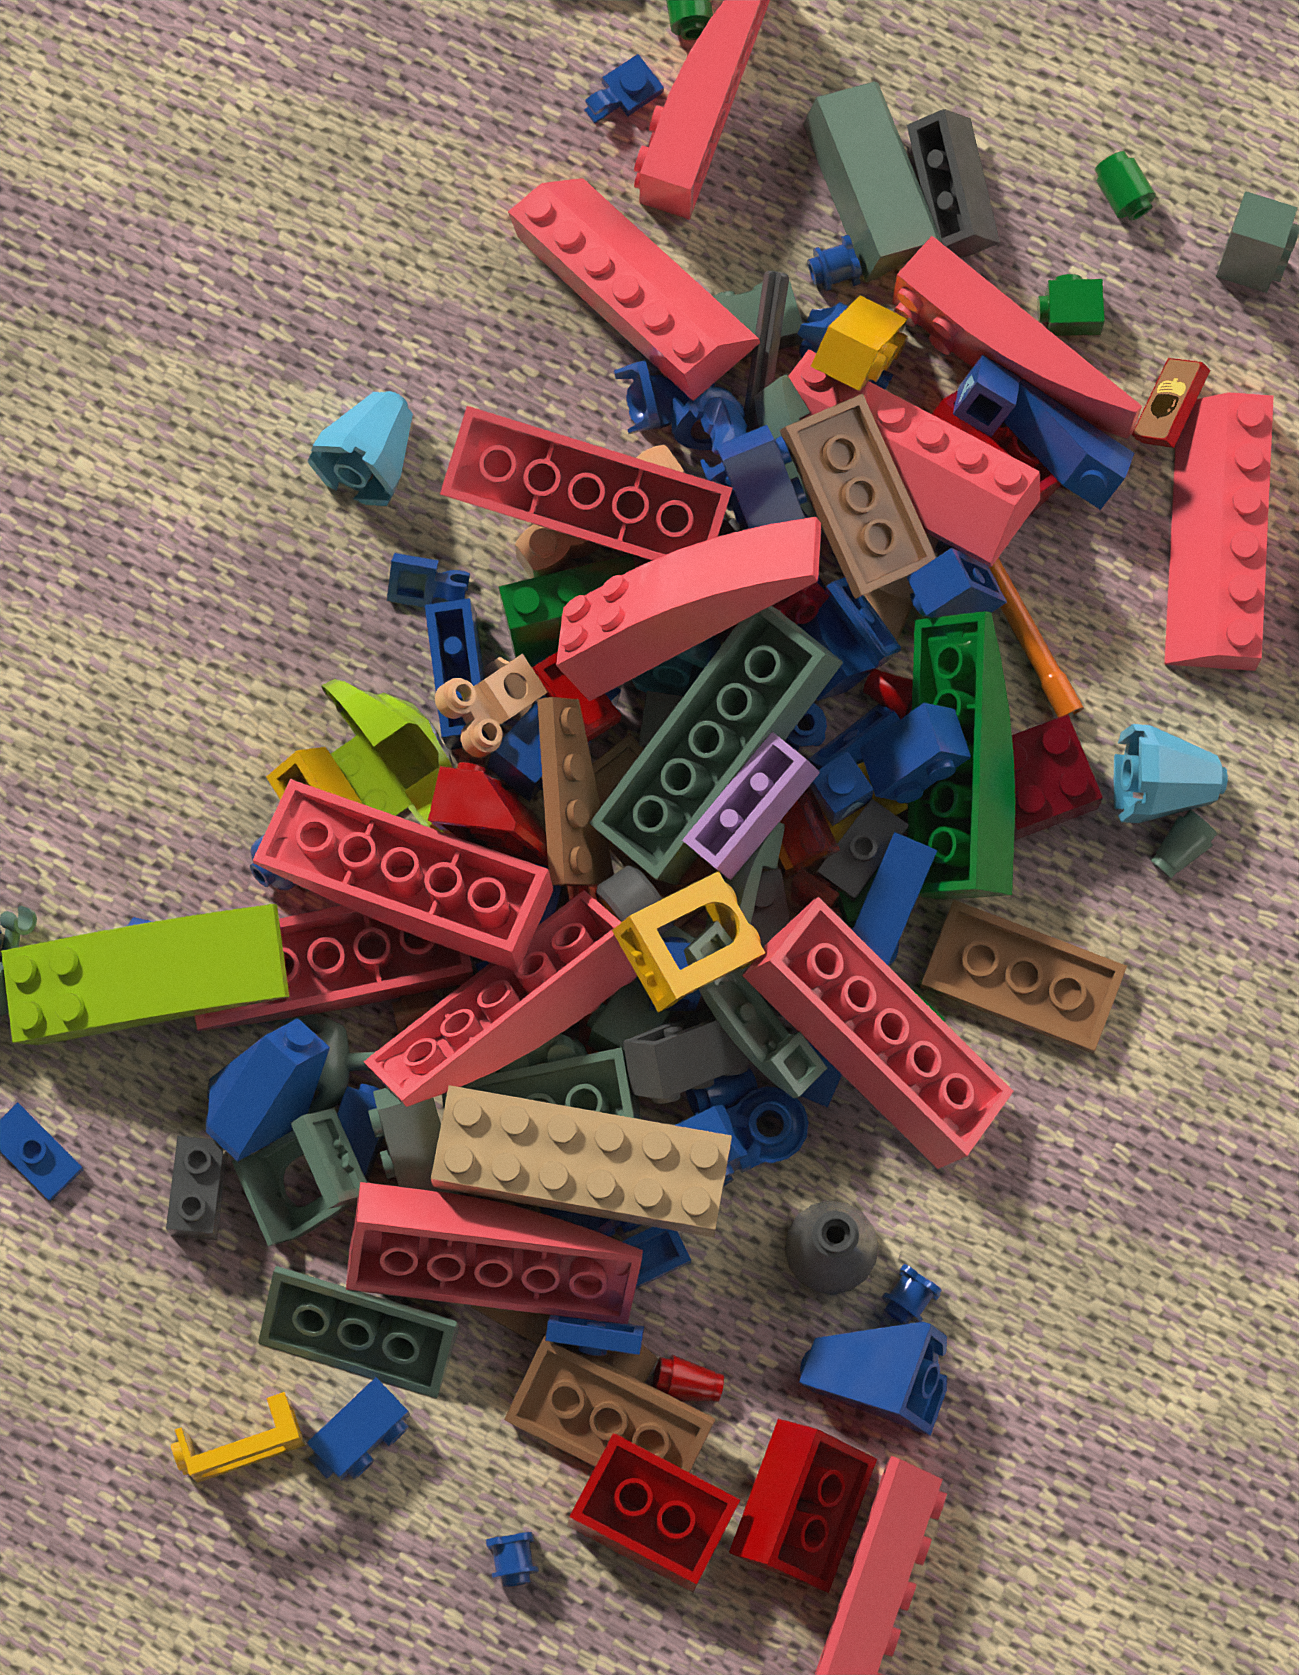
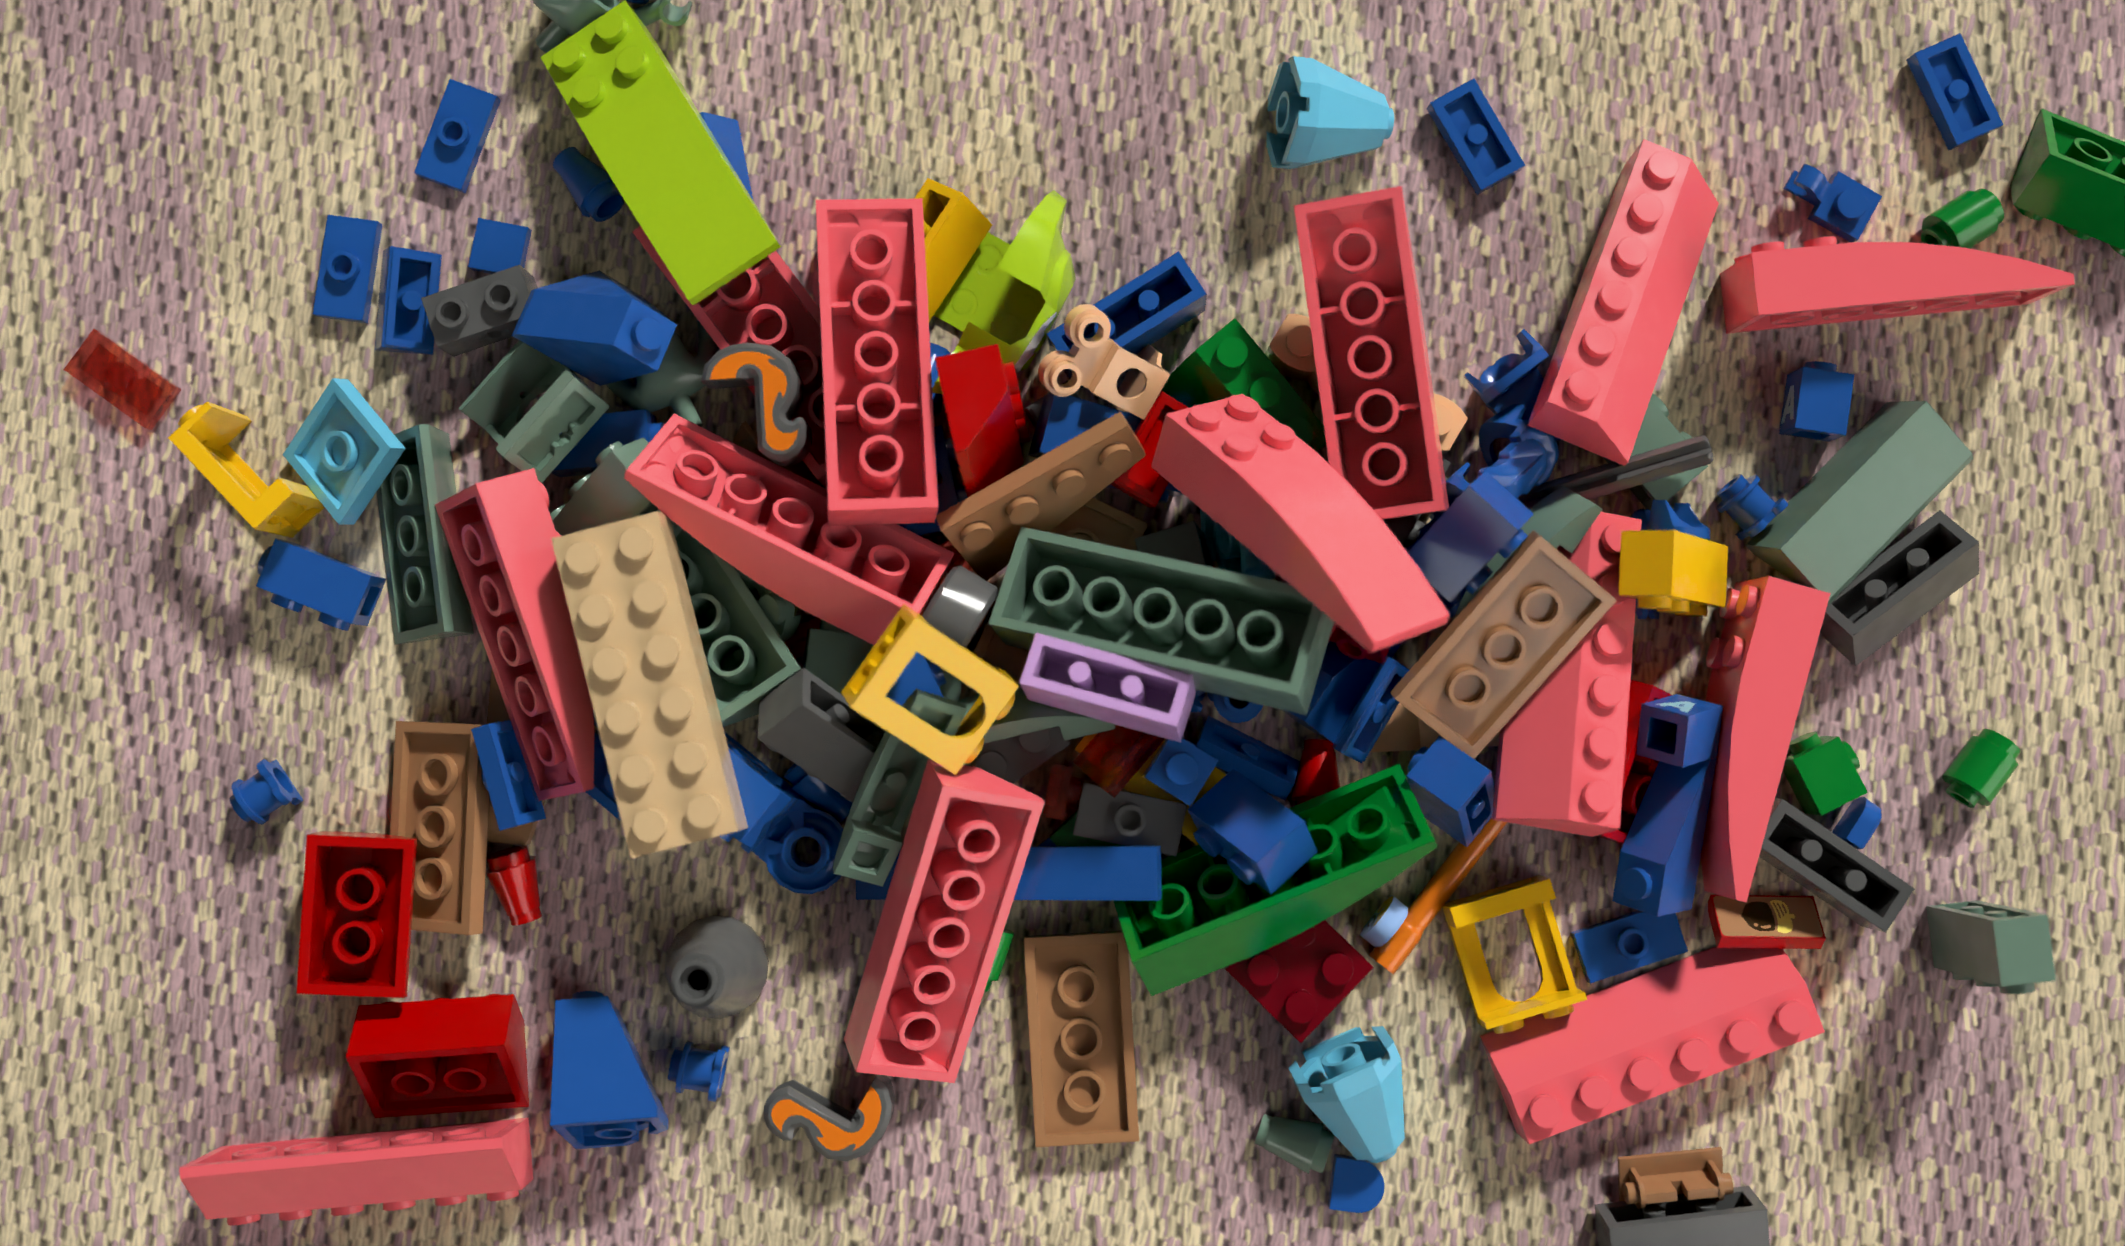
camera: 70 degrees right, 10 degrees up
(101, 1294) = (347, 269): none -> blue plate
(101, 1527) = (122, 379): none -> clear red plate
(132, 1058) = (588, 185): none -> blue cone
(146, 1159) = (498, 246): none -> blue tile
(152, 1258) = (401, 315): none -> blue slope
(259, 1356) = (343, 451): none -> medium azure plate
(390, 965) = (776, 397): none -> dark grey animal
(417, 581) = (1206, 238): blue plate -> none
(438, 338) = (1475, 136): none -> blue plate
(778, 177) = (1816, 402): none -> blue brick
(1002, 1212) = (829, 1126): none -> dark grey animal
(1038, 694) = (1385, 922): none -> light blue tile
(1126, 299) = (1858, 822): none -> blue tile
(1141, 515) = (1627, 944): none -> blue plate
(1148, 333) = (1832, 868): none -> dark grey brick
(1148, 583) = (1557, 987): none -> yellow panel
(1239, 814) = (1354, 1185): none -> blue tile

